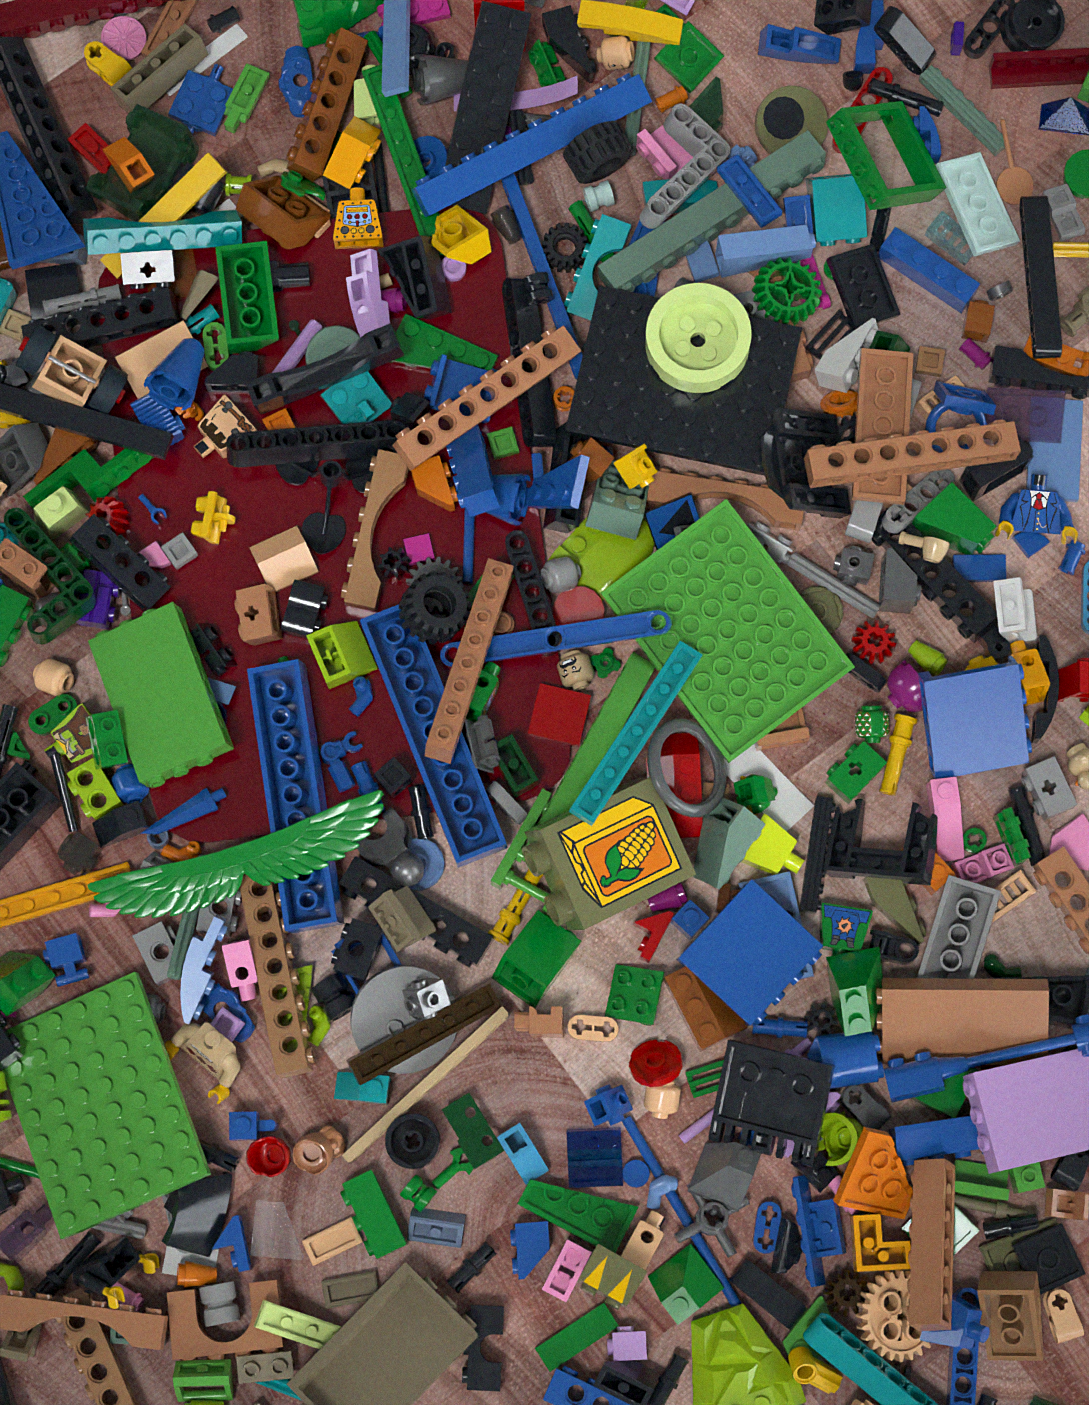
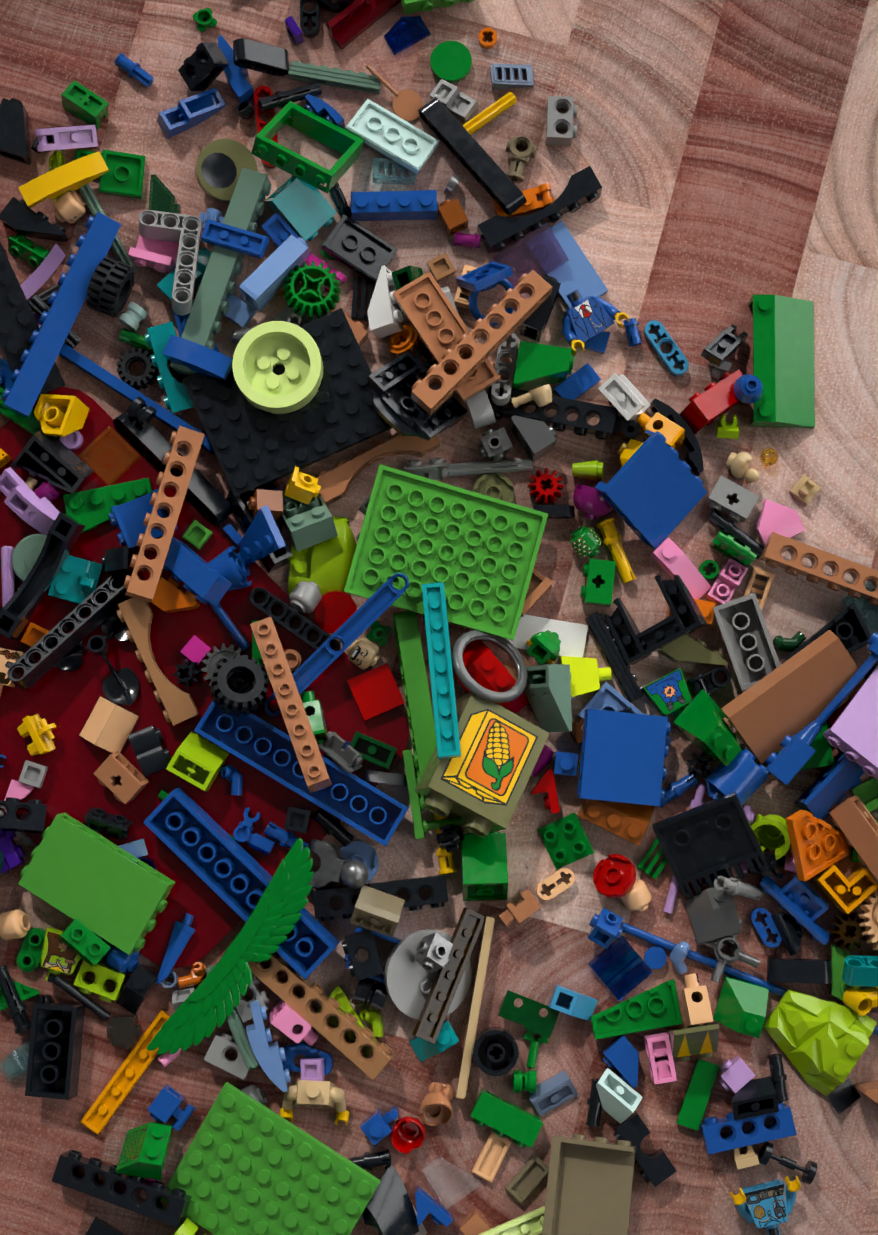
camera: 40 degrees left, 5 degrees up
(476, 309) = (109, 456): none -> clear orange tile
(496, 1274) = (617, 1096): none -> light aqua slope
(506, 223) = (84, 381): clear smoke cone -> none
(524, 904) = (450, 838): none -> black gear
(565, 391) = (212, 467): orange bush -> none
(628, 274) = (197, 357): none -> blue slope
(670, 515) = (349, 501): piece -> none
(671, 98) = (132, 211): orange pin -> none
(764, 1159) = (735, 887): none -> light grey pin
(868, 1111) = (773, 802): dark grey piece -> none

